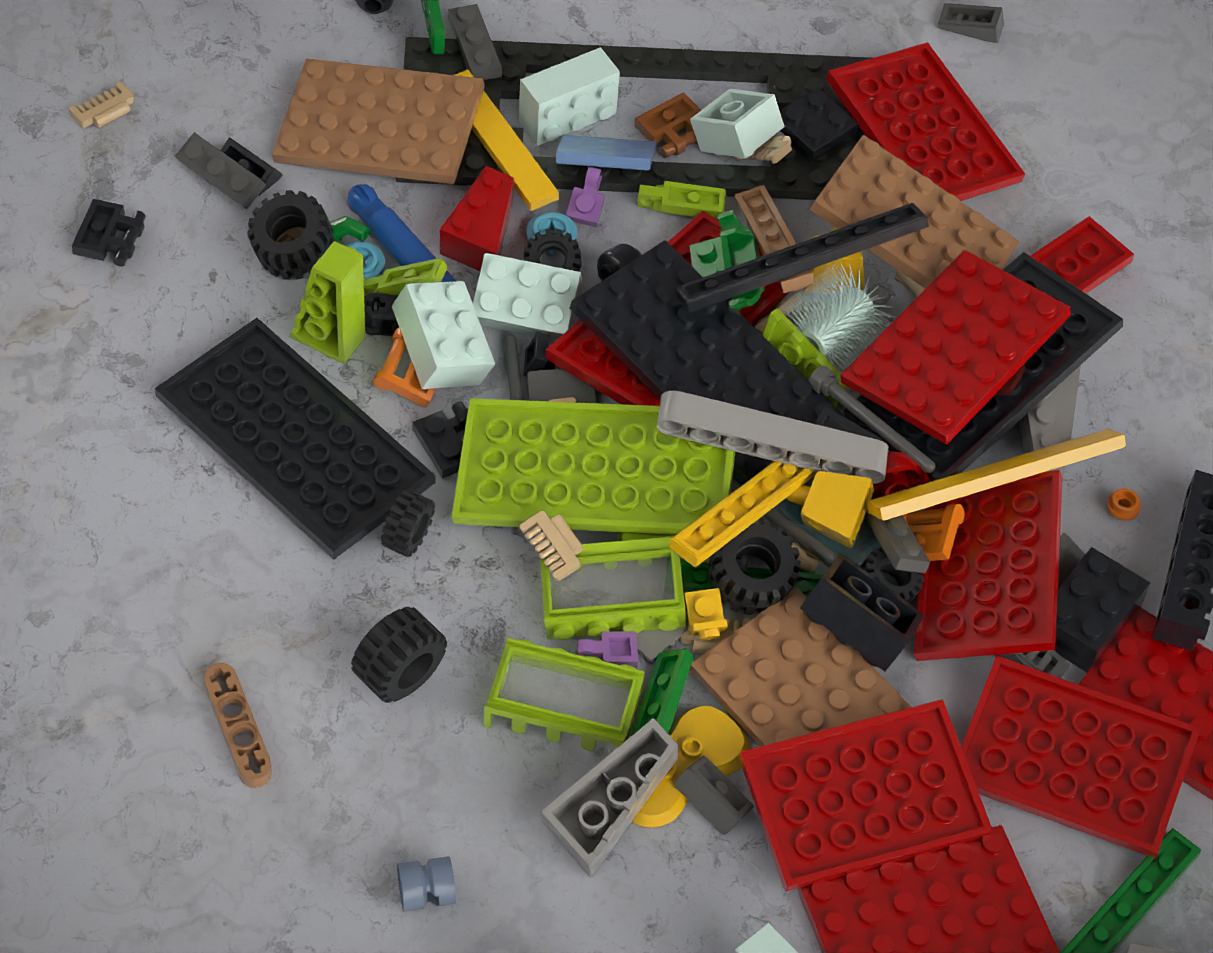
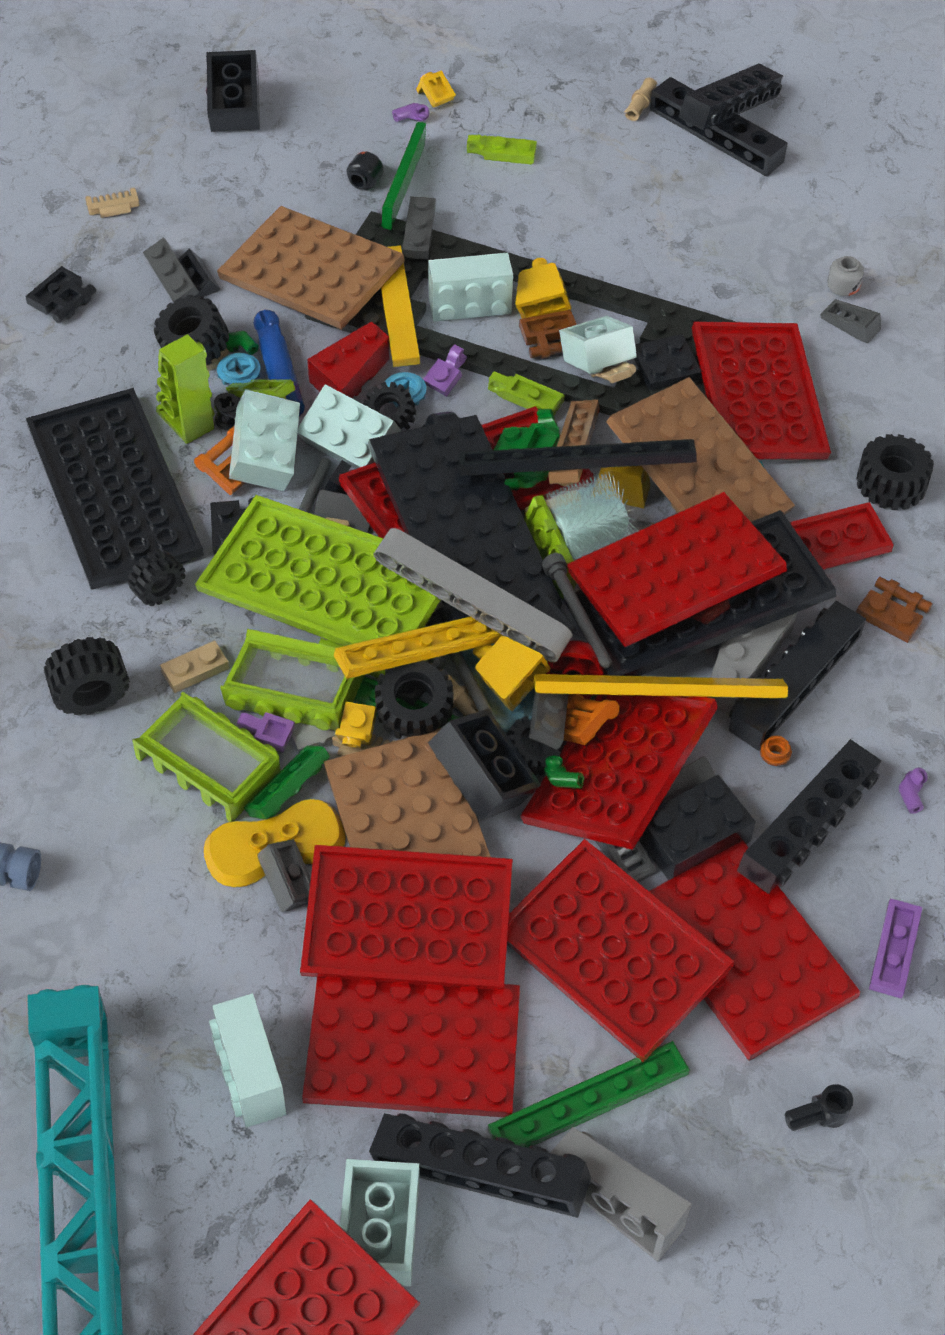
camera: 25 degrees right, 0 degrees up
(493, 607) = (194, 666): none -> tan plate
(561, 539) = (264, 627): tan piece -> none
(606, 152) = (478, 338): medium blue tile -> none
(607, 799) = (193, 845): light grey wedge -> none
(646, 78) = (541, 290): none -> yellow torso
(938, 600) = (559, 776): none -> green arm
(1099, 176) = (879, 466): none -> black tyre
(1108, 408) = (801, 669): none -> black brick
(1162, 329) = (890, 615): none -> dark orange plate

